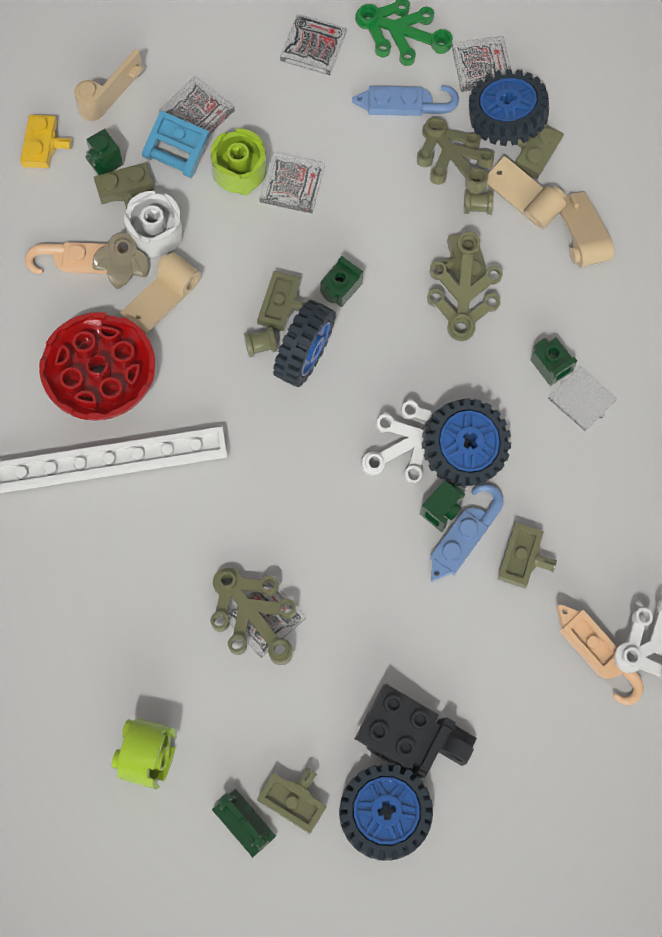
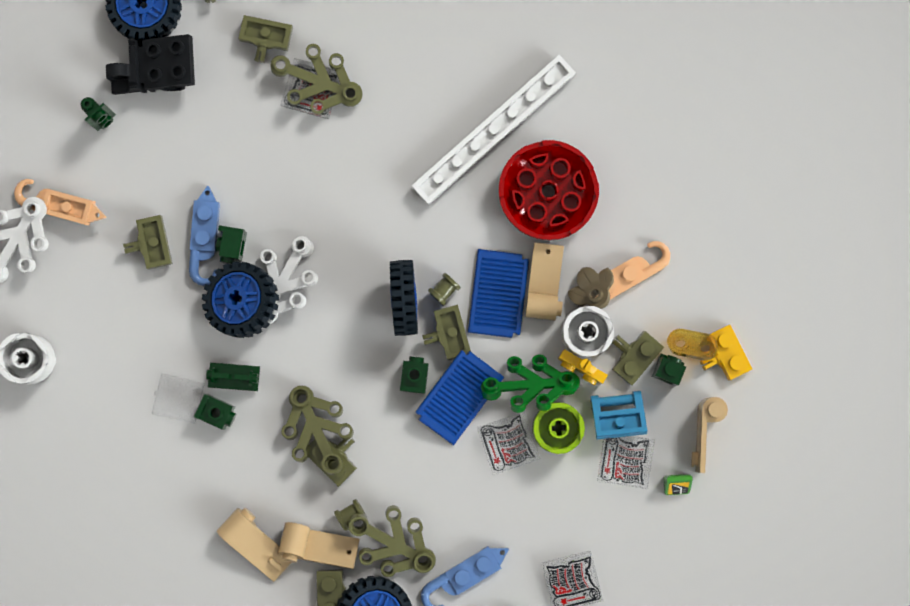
camera: 150 degrees right, 15 degrees up
(67, 161) = (693, 343): none -> clear yellow plate
(164, 66) = (677, 484): none -> slope
(177, 191) = (591, 374): none -> yellow plate
(211, 313) = (498, 293): none -> blue window
(233, 208) = (562, 383): none -> green plant
(276, 697) = (265, 35): none -> olive plate
(310, 243) = (456, 396): none -> blue window
(505, 715) = (98, 116): none -> dark green hinge
(515, 384) = (233, 376): none -> dark green hinge

